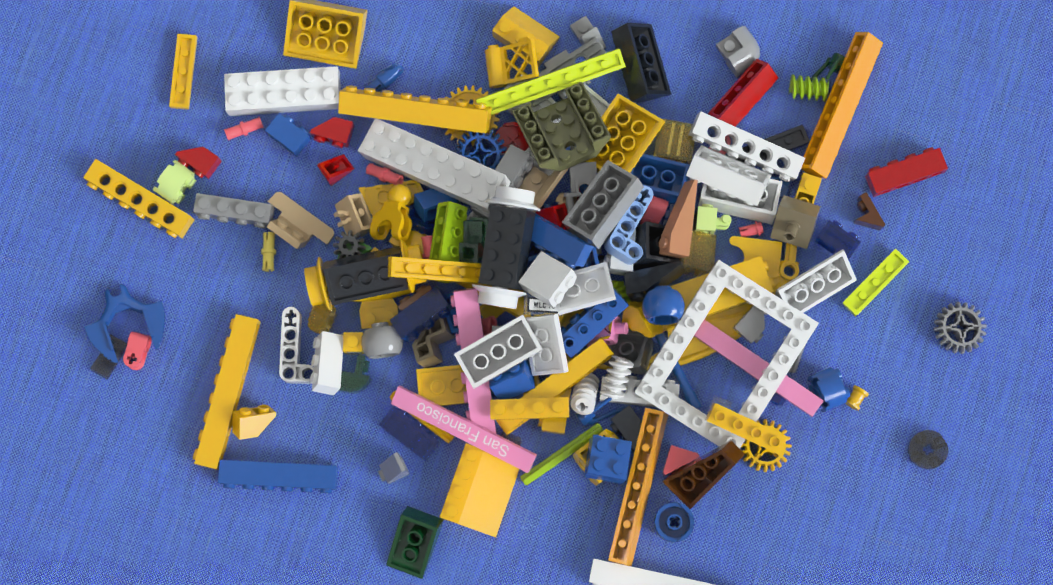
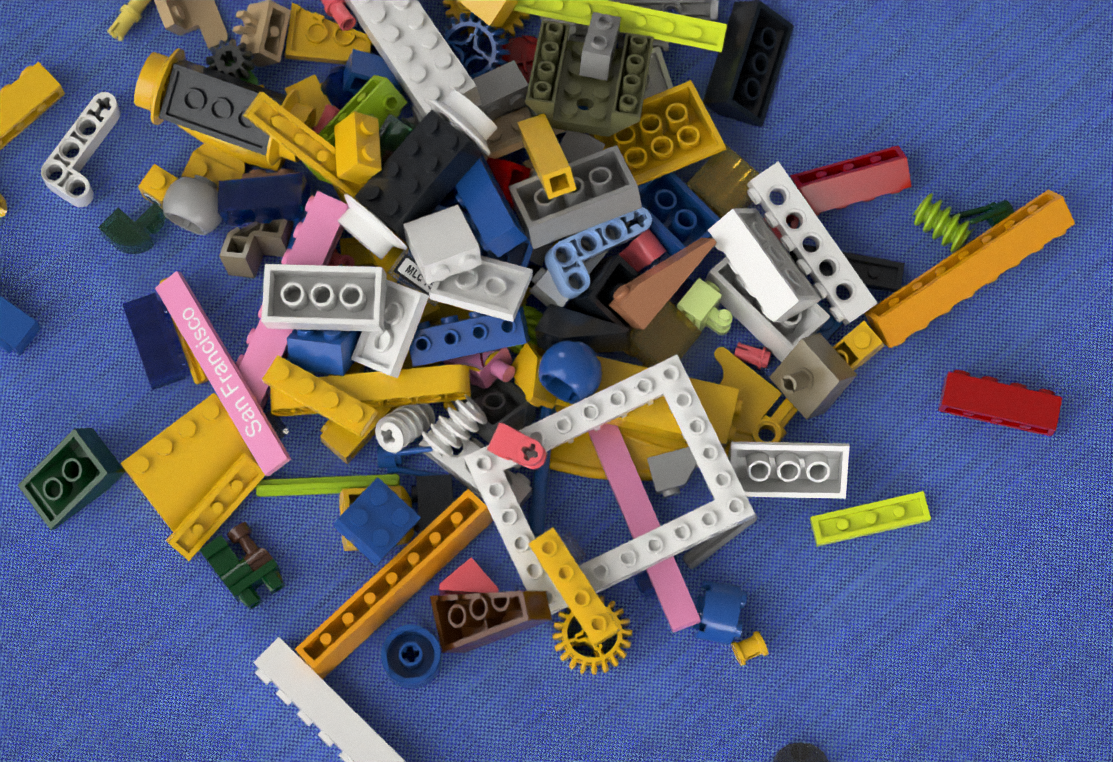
camera: 25 degrees right, 5 degrees down
(321, 318) = (138, 132): clear yellow gear -> none
(327, 363) = (108, 188): white brick -> none
(393, 215) = (311, 59): yellow piece -> none
(393, 468) = (105, 369): light grey slope -> none
(441, 385) = (231, 305): yellow plate -> none
(462, 253) = (357, 147): none -> yellow brick
(508, 507) = (216, 507): none -> yellow plate
(550, 532) = (245, 574): none -> dark green hips
(556, 106) = (600, 46): none -> light grey brick
(573, 191) = (546, 156): none -> yellow brick
(660, 369) = (513, 444): none -> coral piece
(739, 50) = (884, 122): light grey brick -> none
(835, 239) = (853, 427): clear blue brick -> none
(871, 218) = (916, 434): reddish brown slope -> none
(960, 335) = (930, 637): light grey gear -> none

